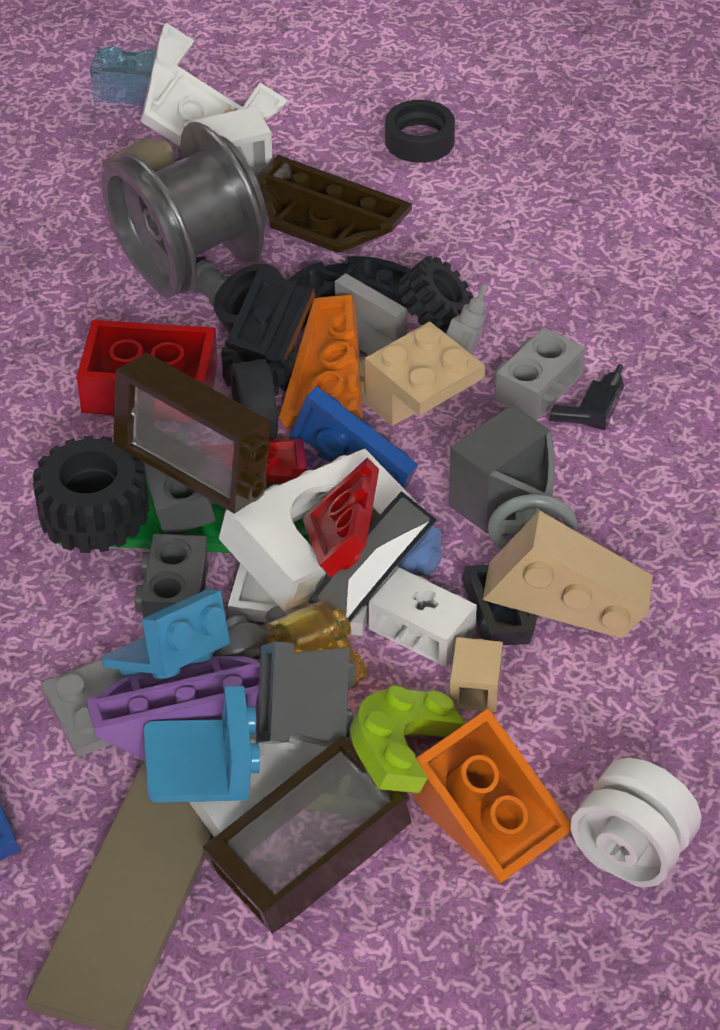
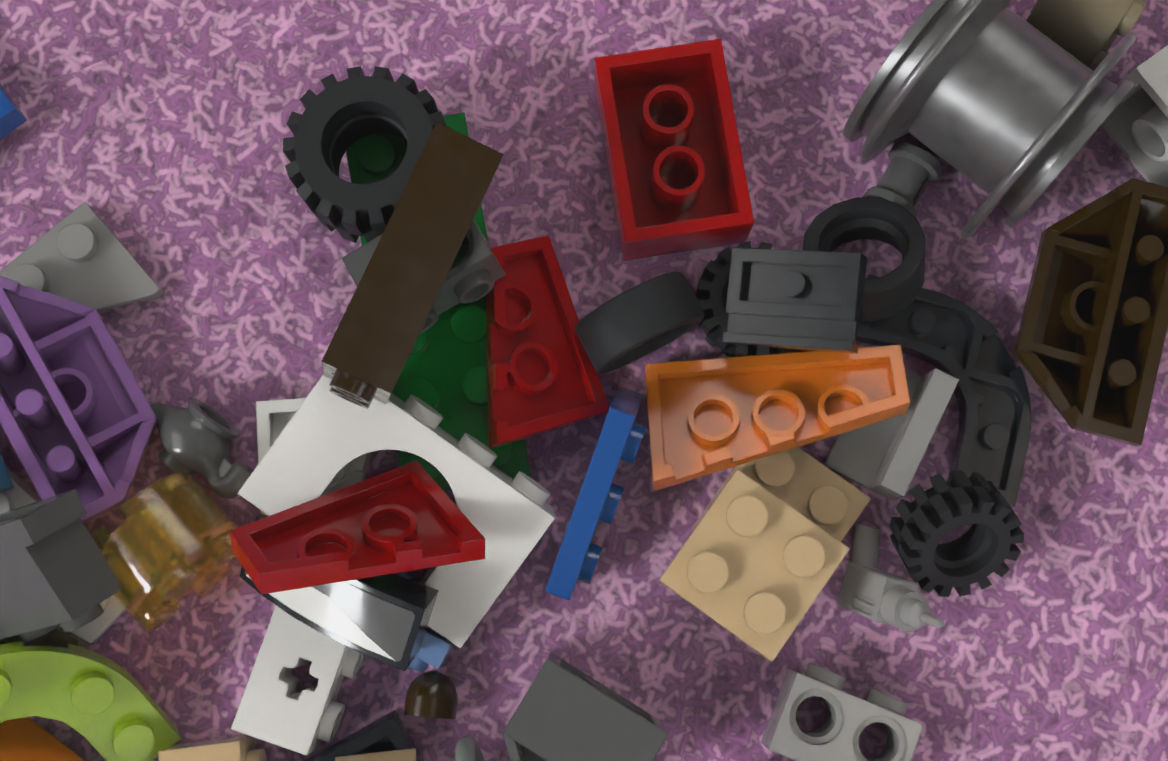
camera: 75 degrees right, 35 degrees up
(171, 571) = (286, 332): dark grey brick -> none
(175, 638) = (136, 346): dark azure bracket -> none
(457, 556) = (431, 696): none -> dark brown hinge

